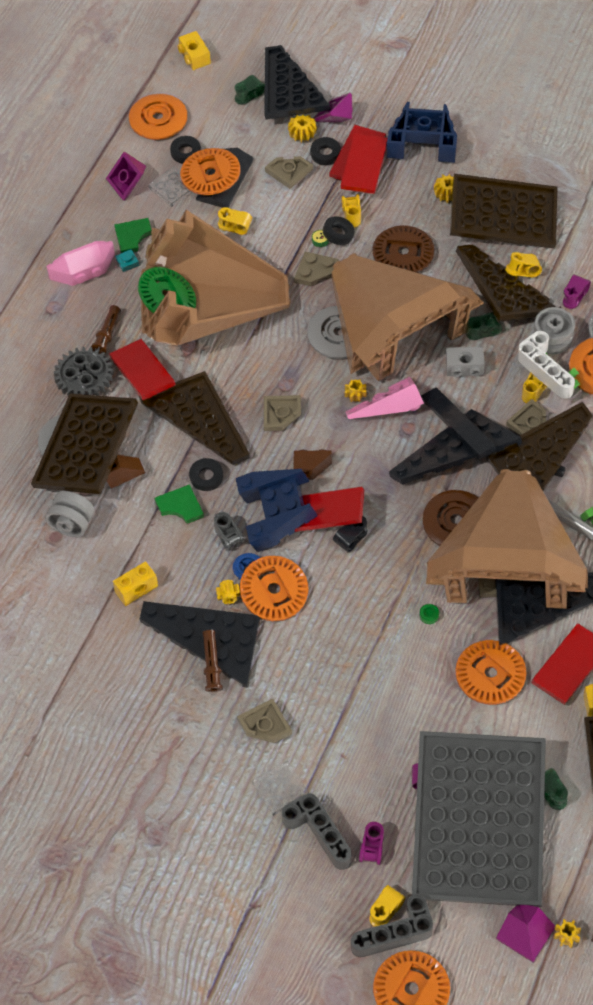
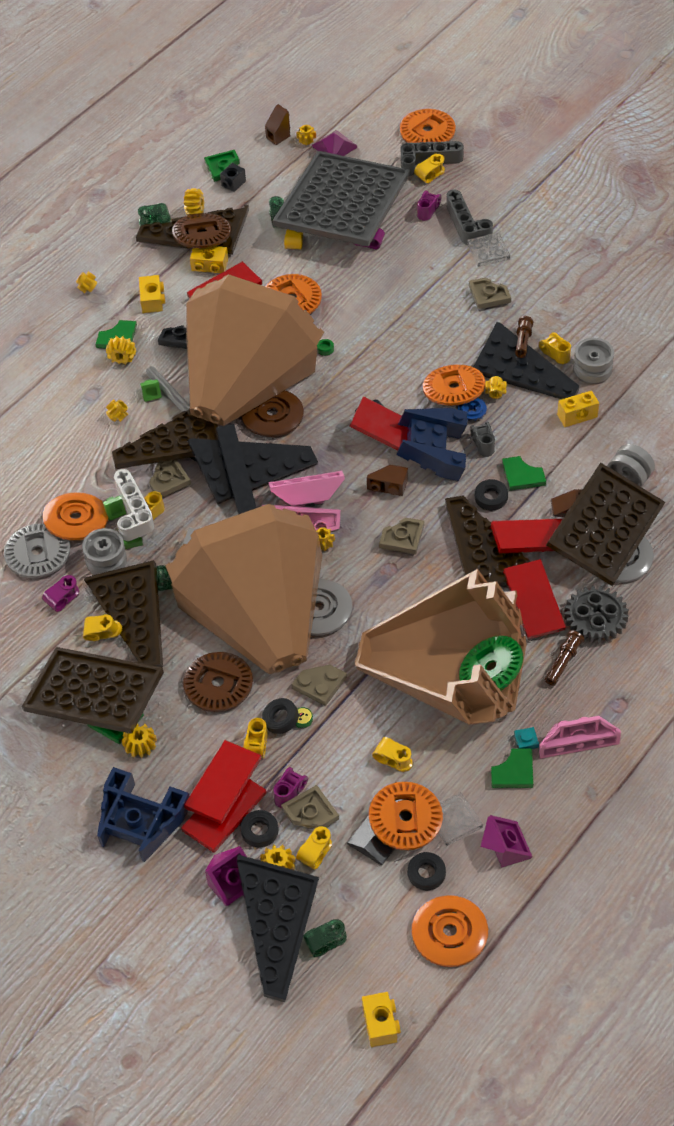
camera: 165 degrees left, 5 degrees down
(127, 643) = (593, 360): none -> light grey wheel
(158, 428) = (524, 535): none -> red tile
(175, 662) = (556, 348): none -> yellow piece
(276, 143) = (315, 847): none -> yellow piece
(312, 179) = (289, 784): none -> magenta piece
(390, 436) = (307, 489): none -> bright pink wedge

